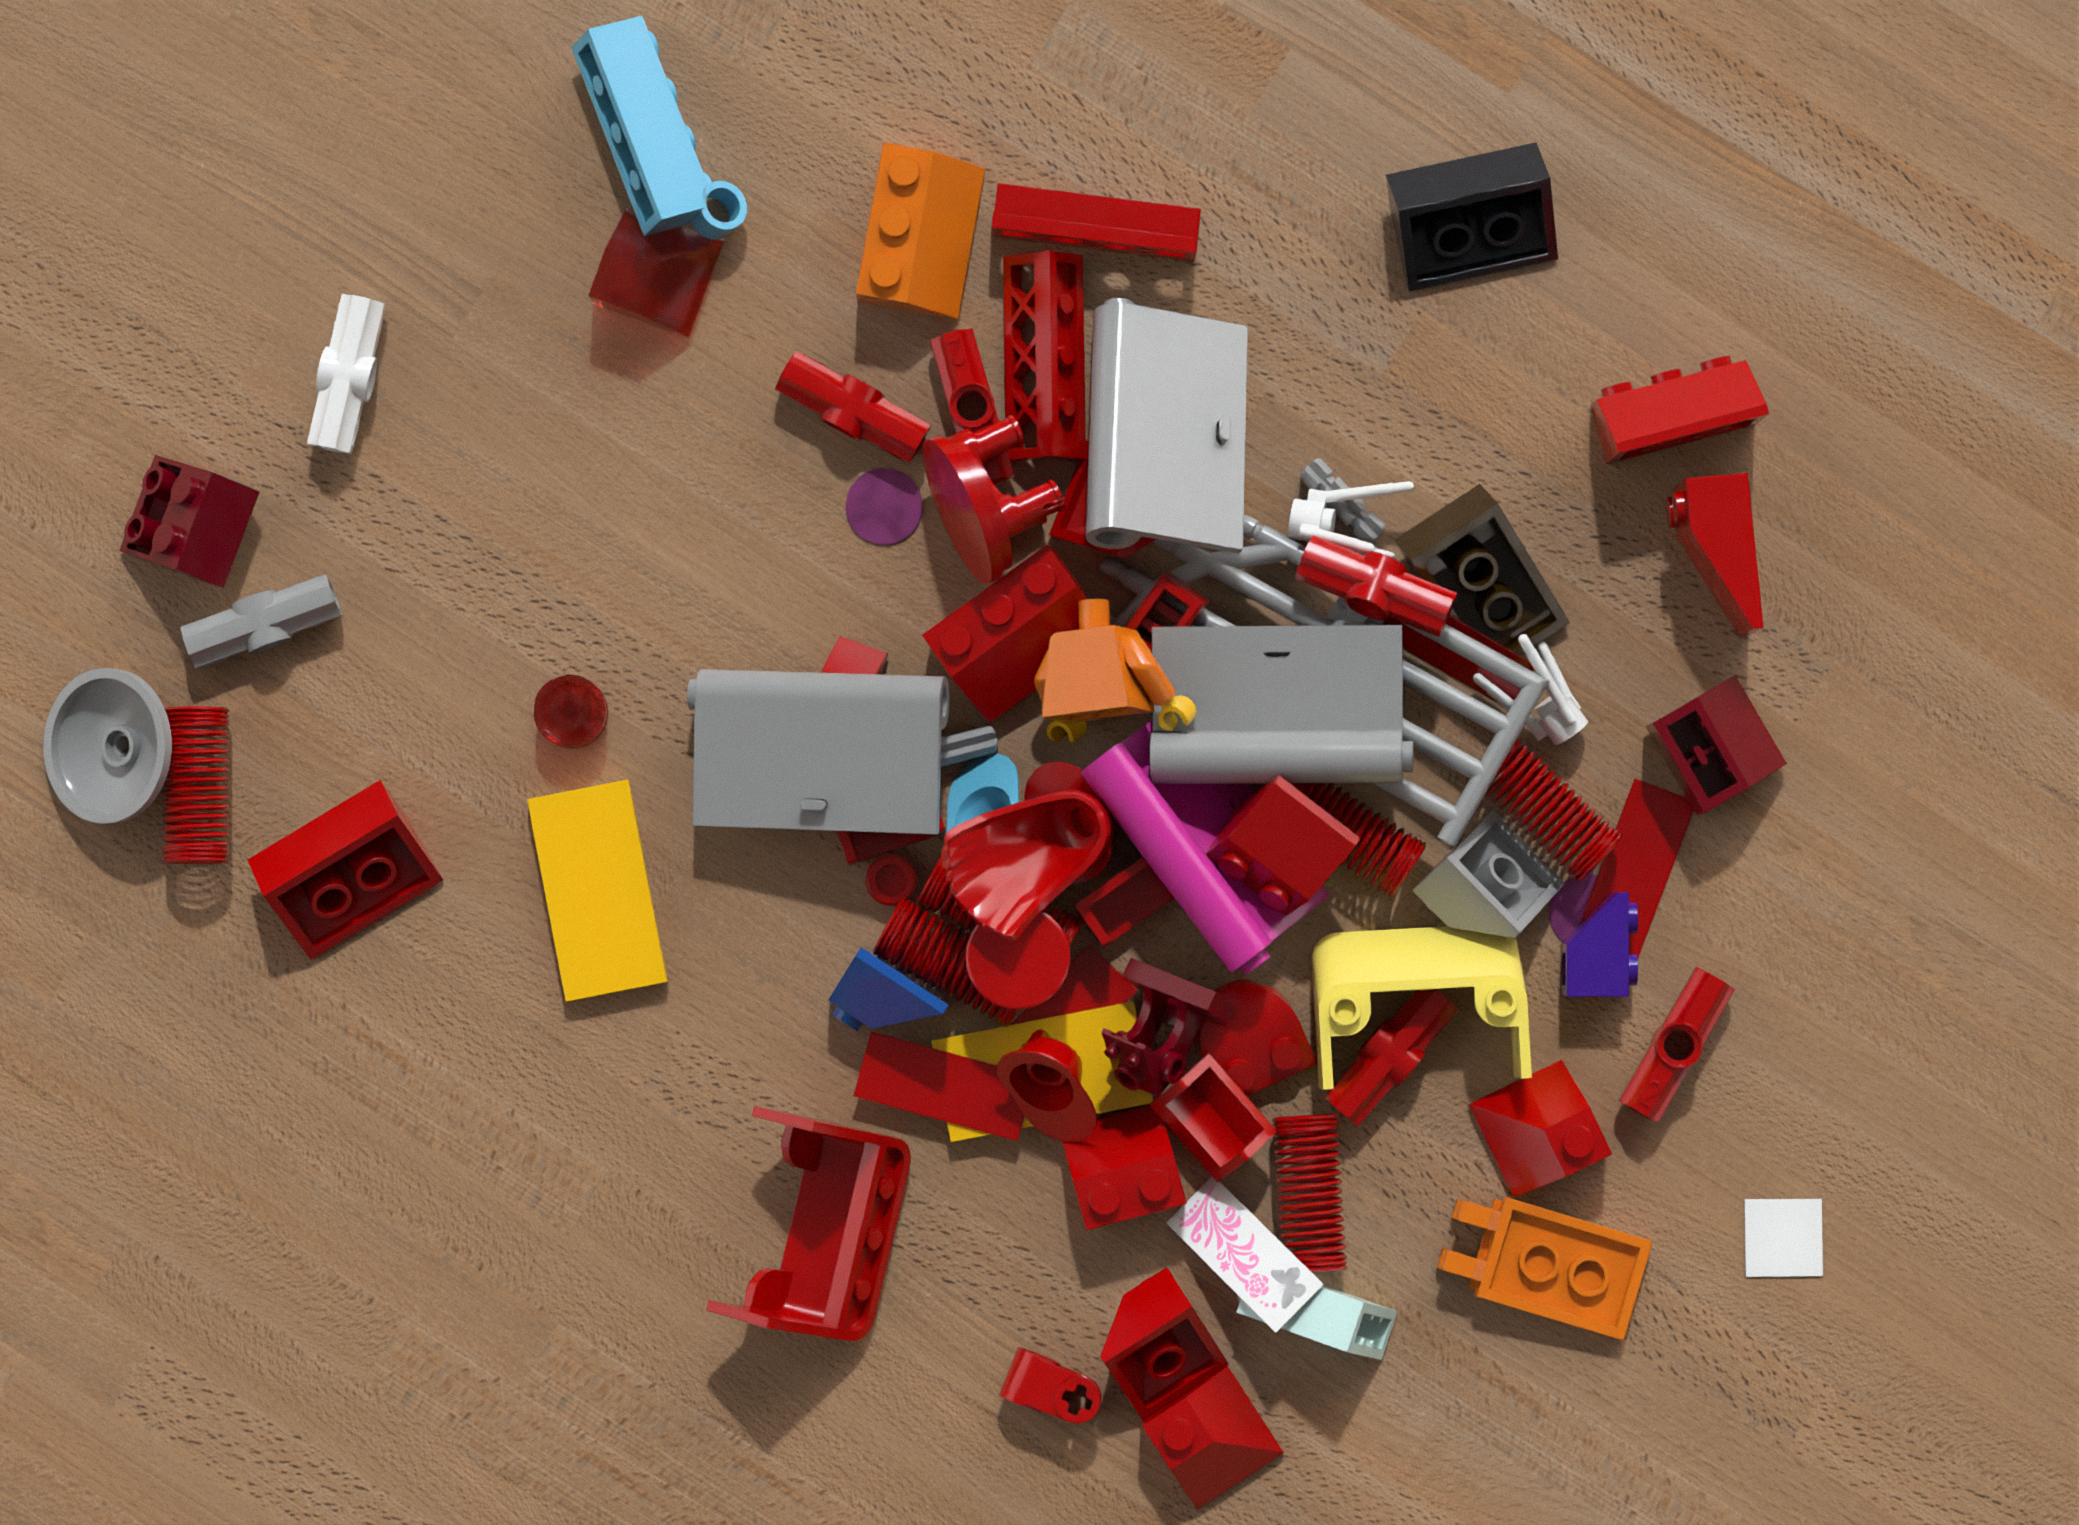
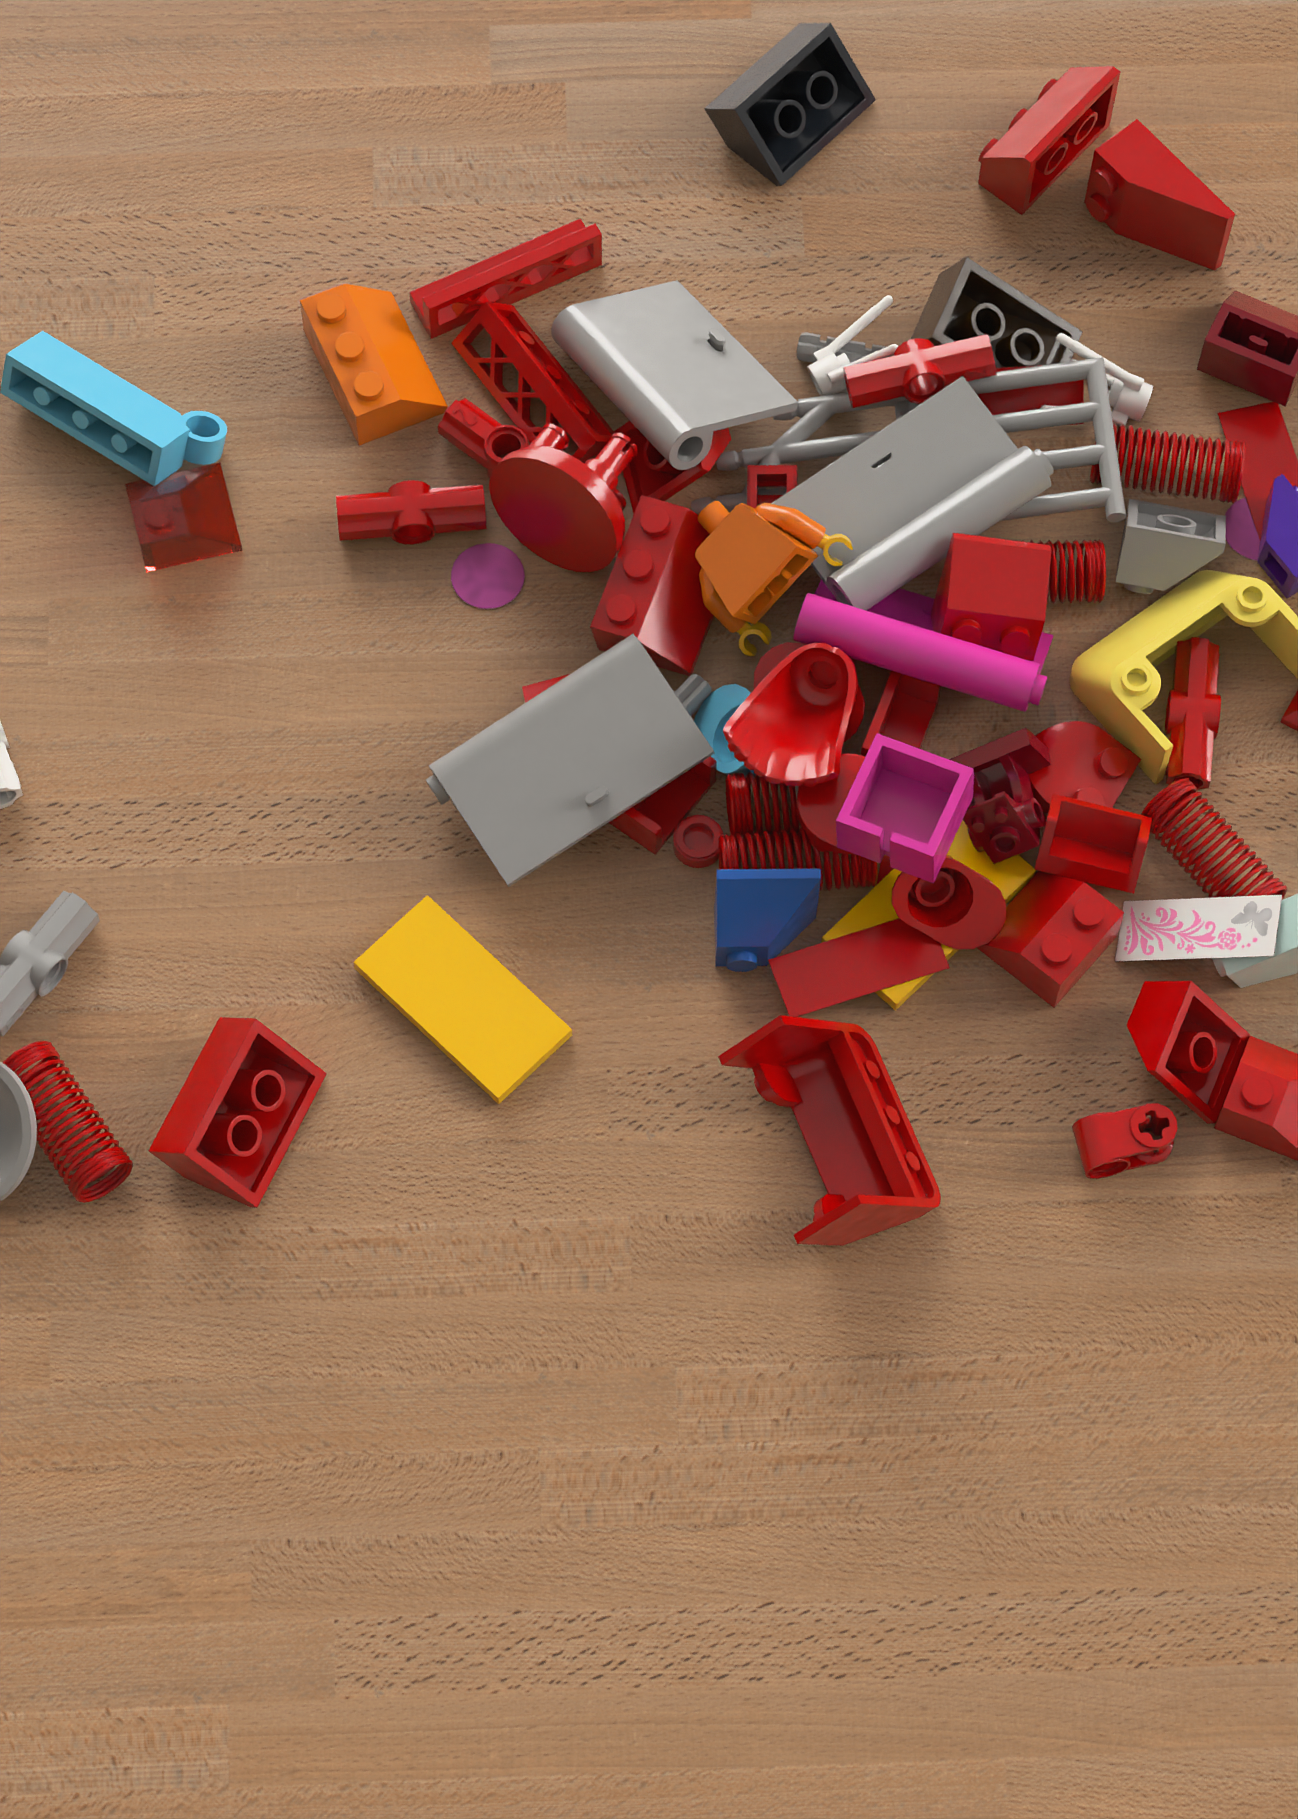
camera: 30 degrees left, 20 degrees down
(571, 711) = (343, 871): clear red wheel -> none
(1046, 1011) = (905, 807): none -> dark pink piece

